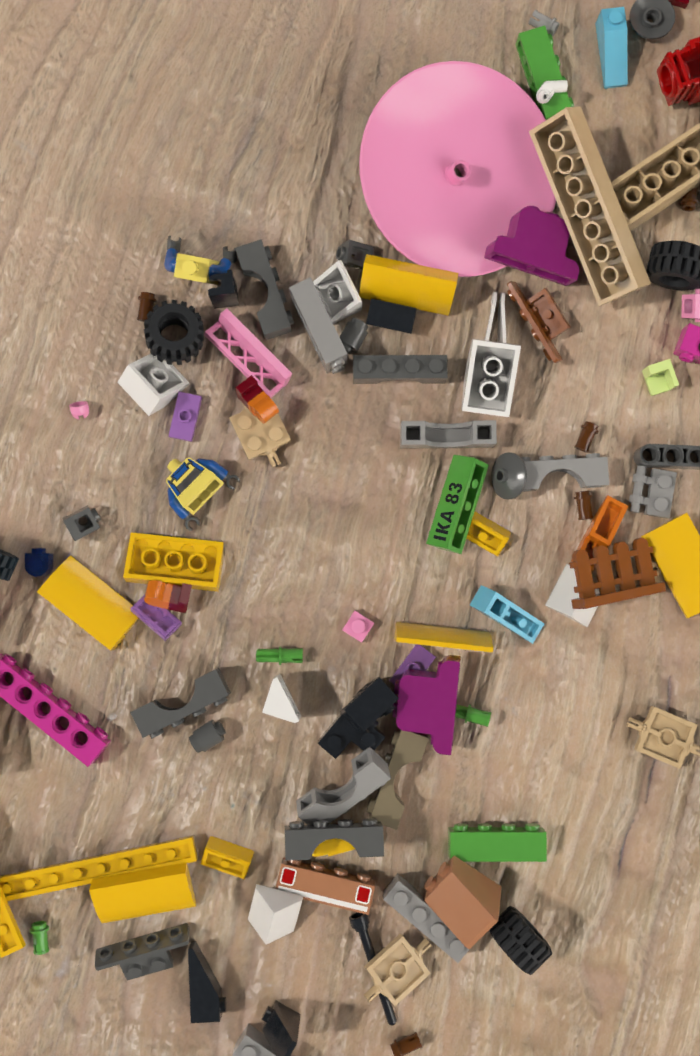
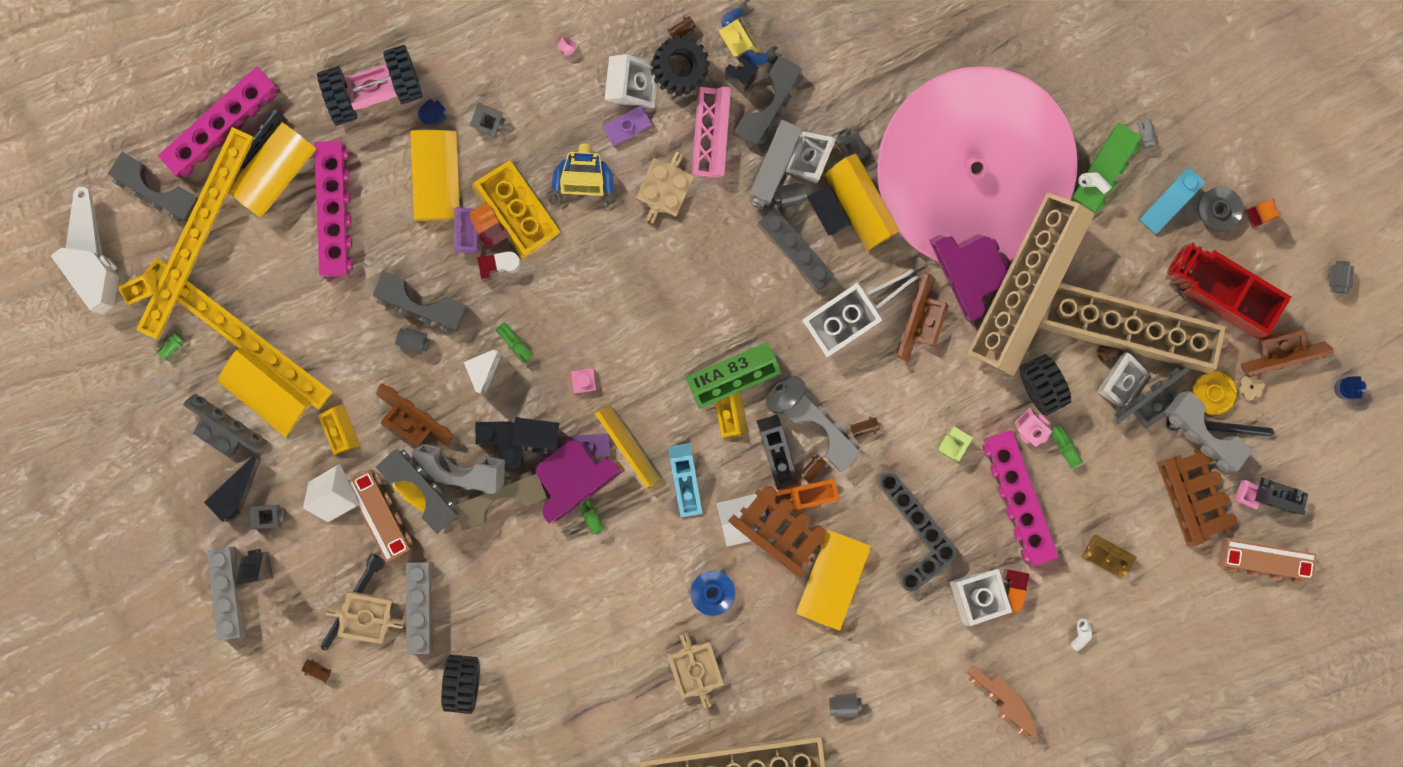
camera: 45 degrees right, 0 degrees up
(203, 615) = (498, 263): none -> leg
(245, 987) = (258, 516): none -> dark grey brick
(256, 399) = (682, 166): leg -> none
(270, 796) = (410, 422): none -> dark orange bracket
(458, 435) = (775, 323): light grey arch -> none
(464, 900) = (454, 618): nougat slope -> none
(497, 843) = (514, 613): bright green brick -> none
(546, 521) = (777, 451): none -> black slope
(627, 674) = (712, 605): none -> blue dish
(659, 493) = (870, 516): light grey plate -> none

